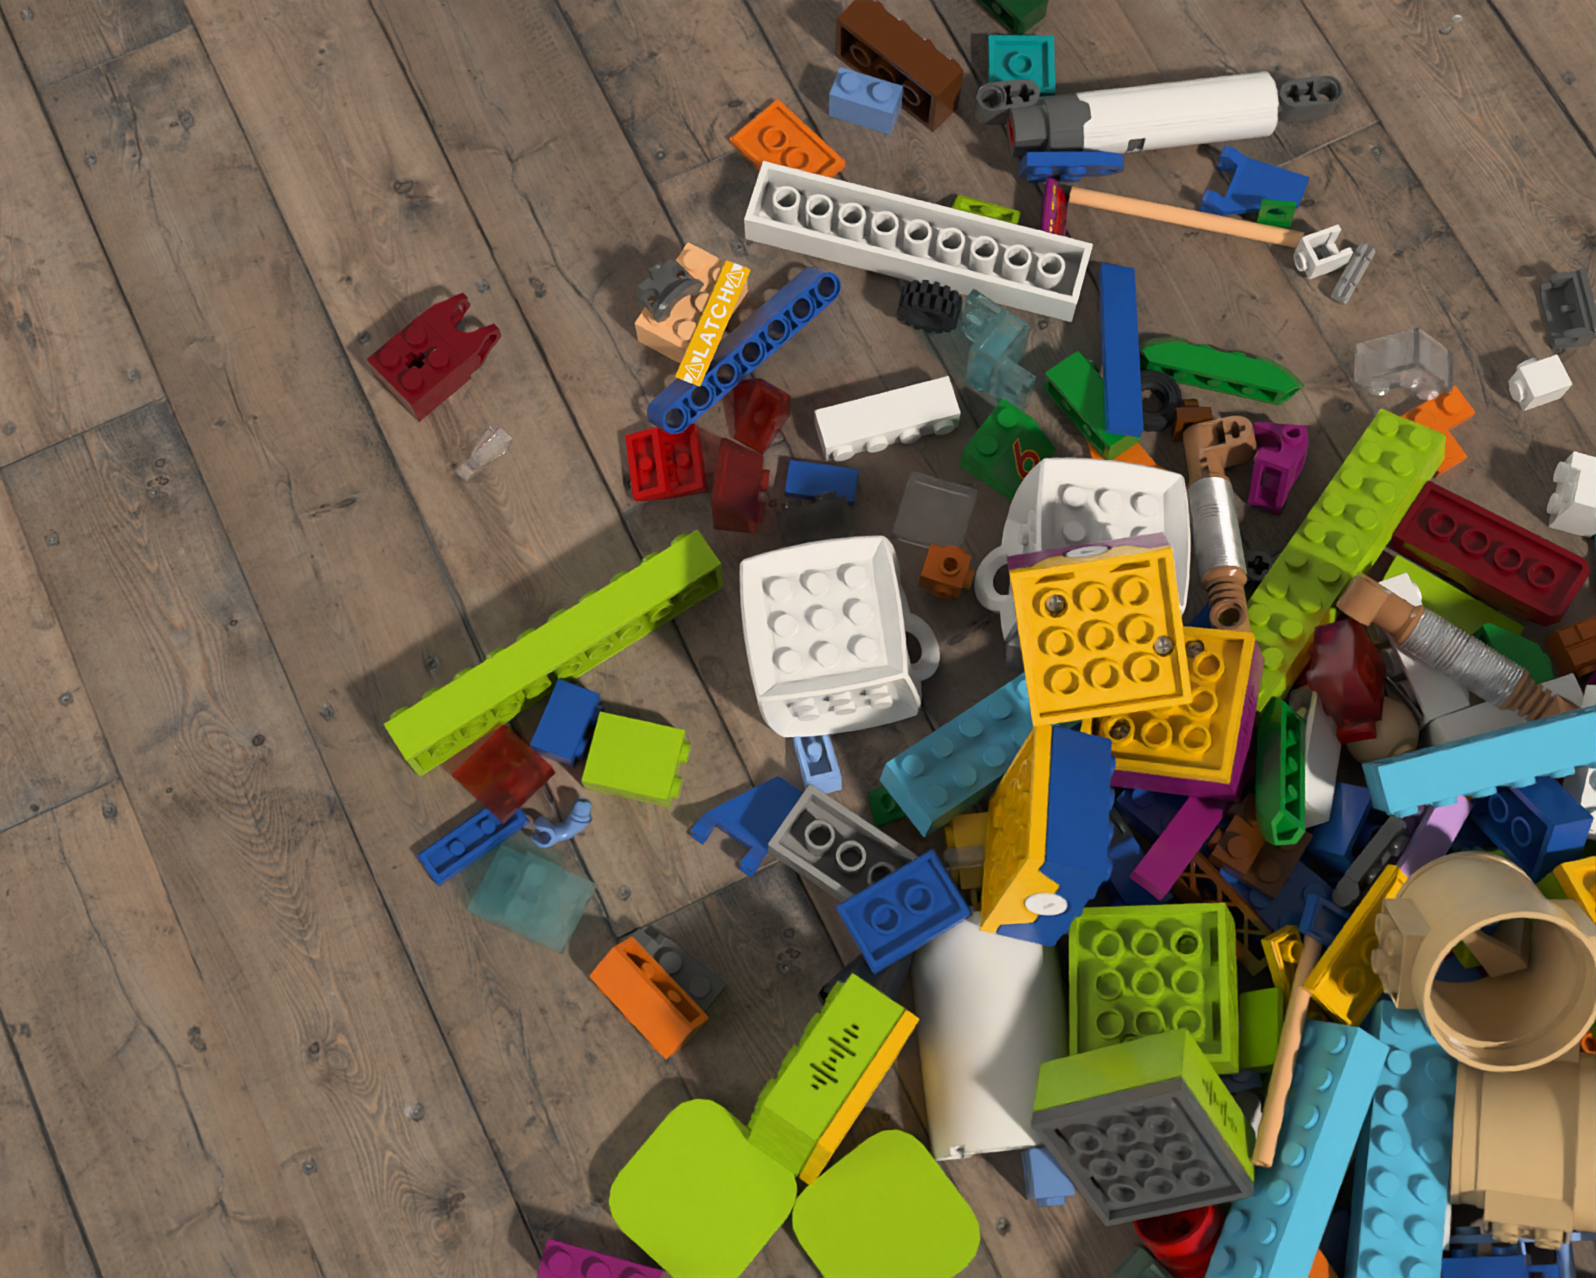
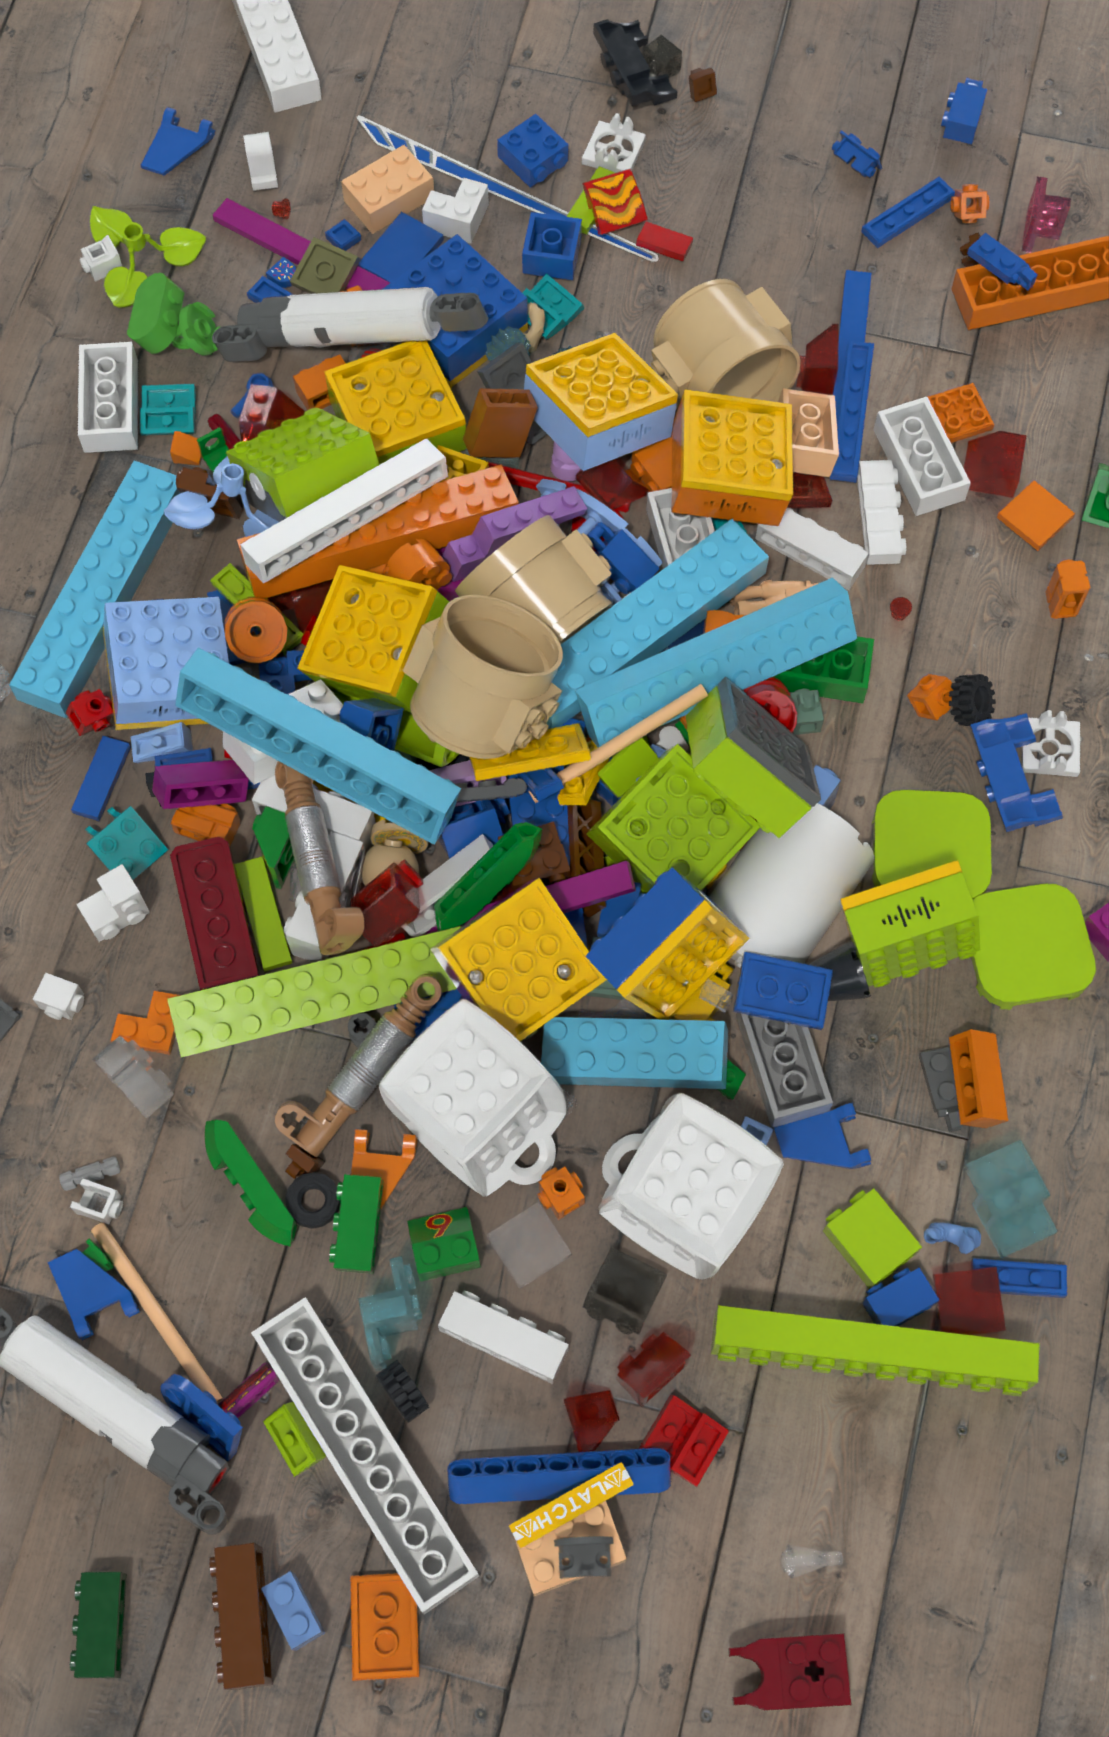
camera: 140 degrees left, 5 degrees down
(810, 479) = (586, 1332): blue tile -> none
(1022, 58) = (151, 1539): teal plate -> none
(1100, 629) = (539, 1012): yellow piece -> none
(1120, 351) = (303, 1244): blue tile -> none
(1283, 456) = (294, 1068): magenta tile -> none

